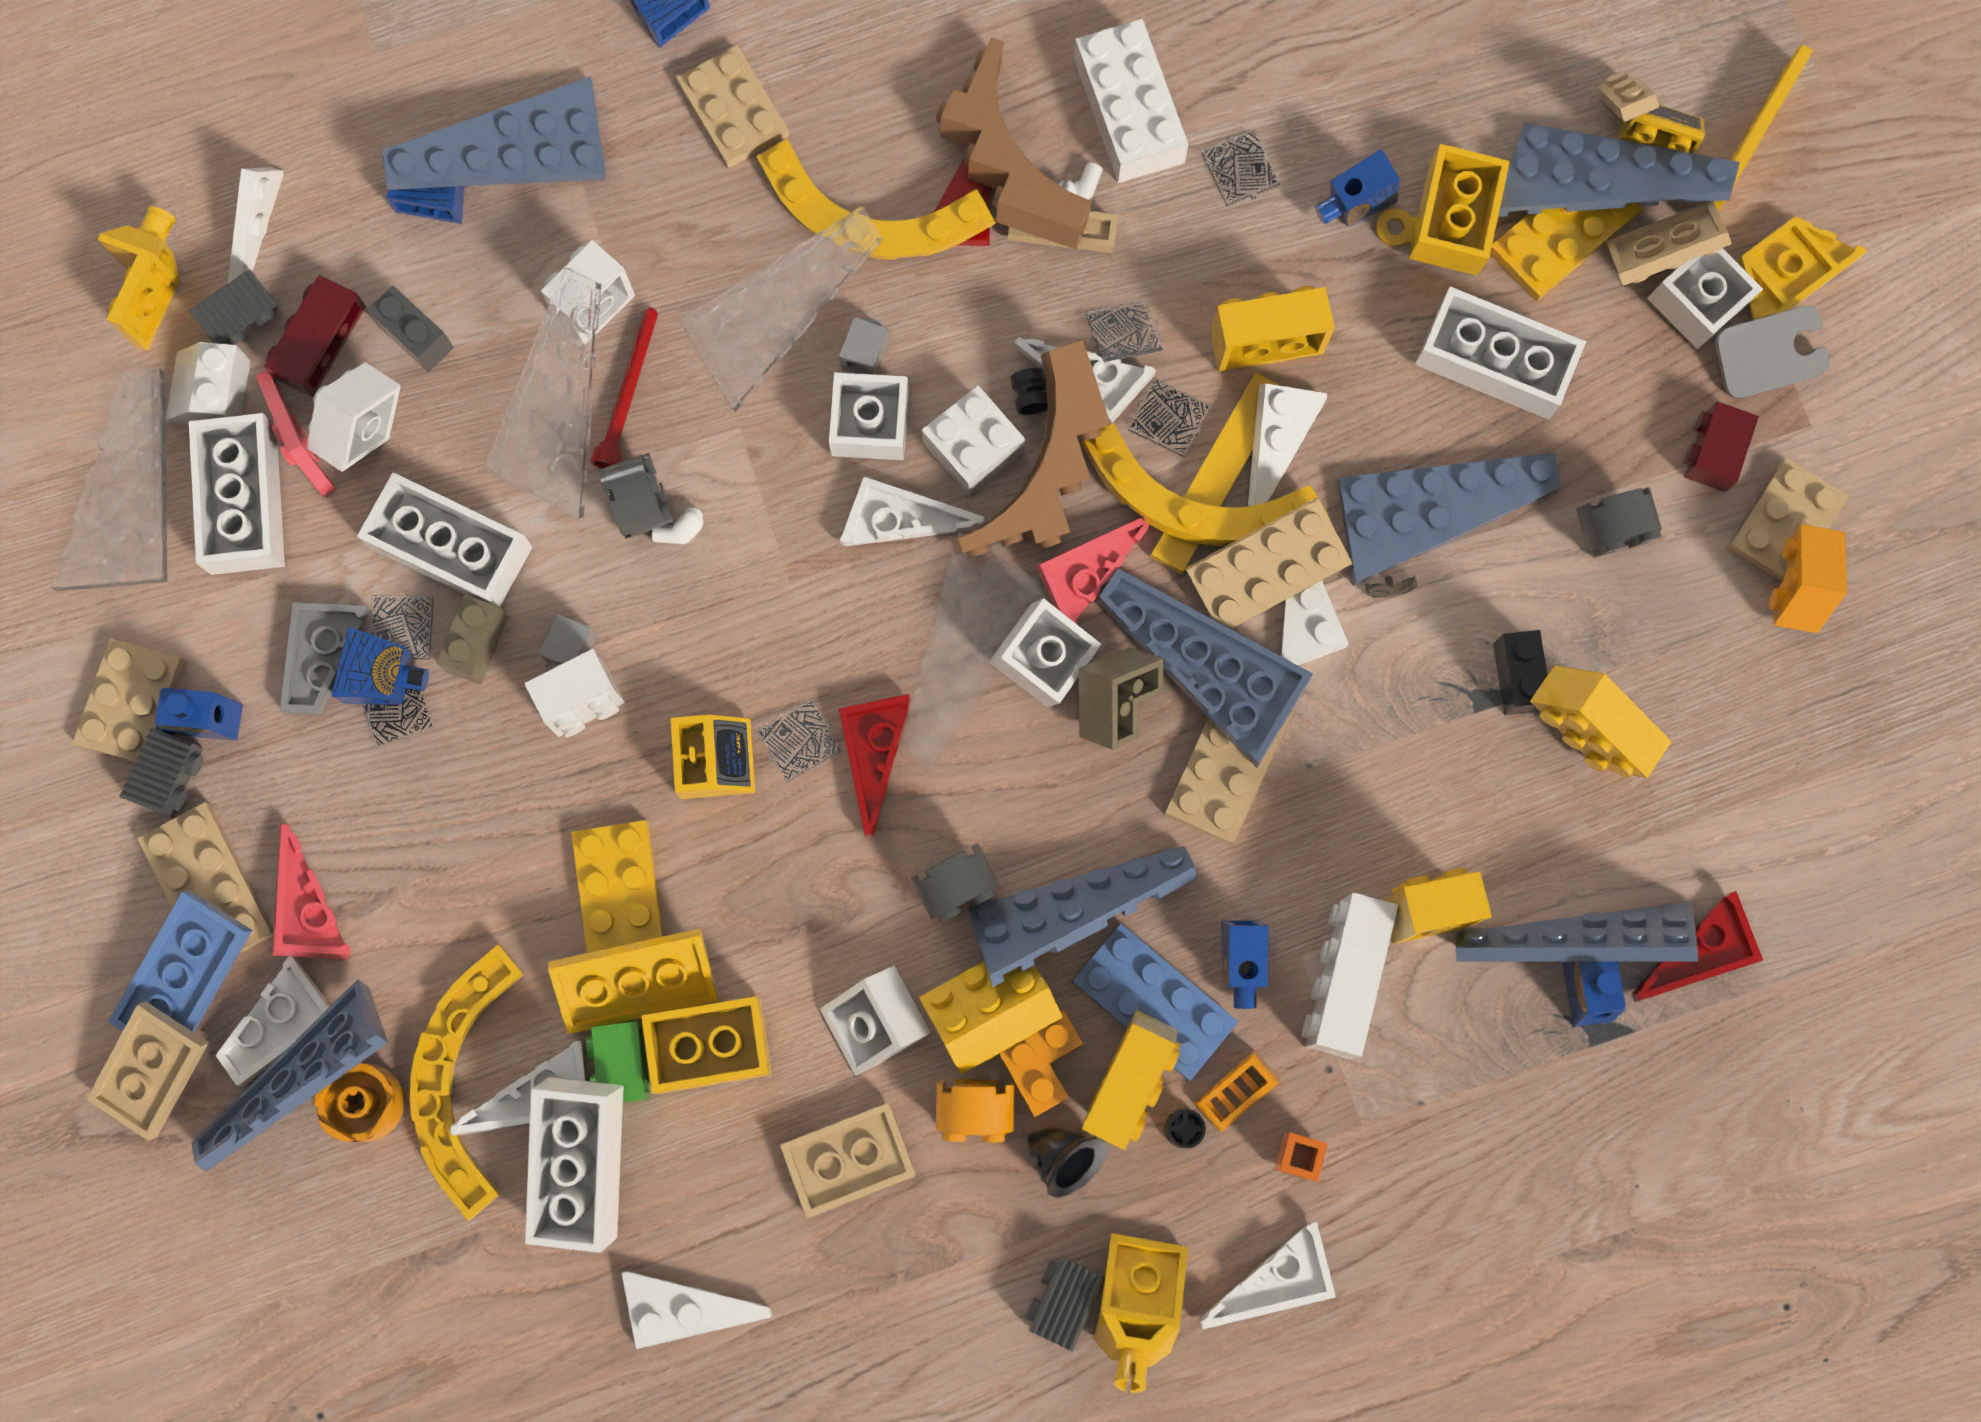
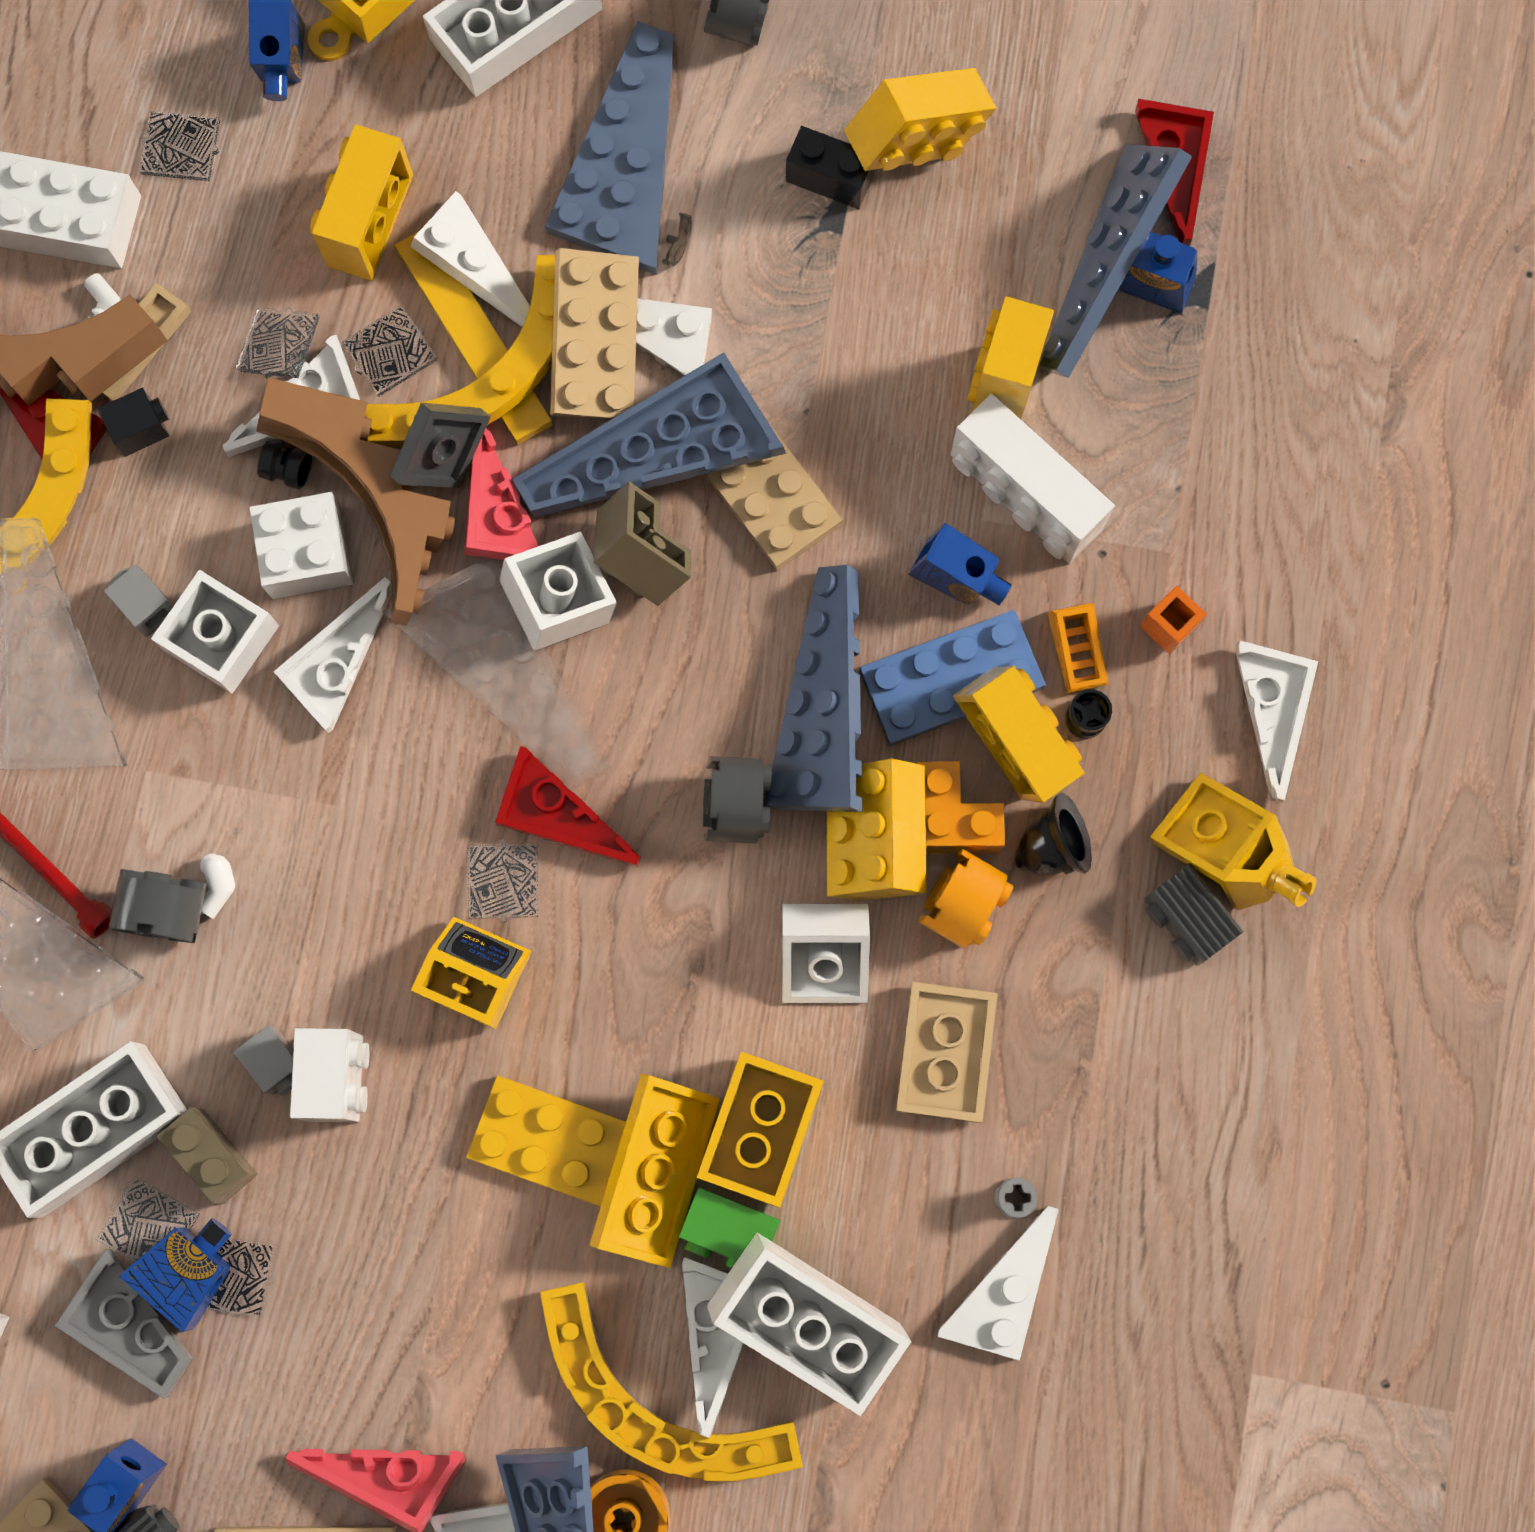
camera: 60 degrees left, 0 degrees up
(750, 1272) = (1023, 1187): none -> light grey bush
(1000, 262) = (135, 421): none -> black brick
(1107, 498) = (440, 445): none -> dark grey plate

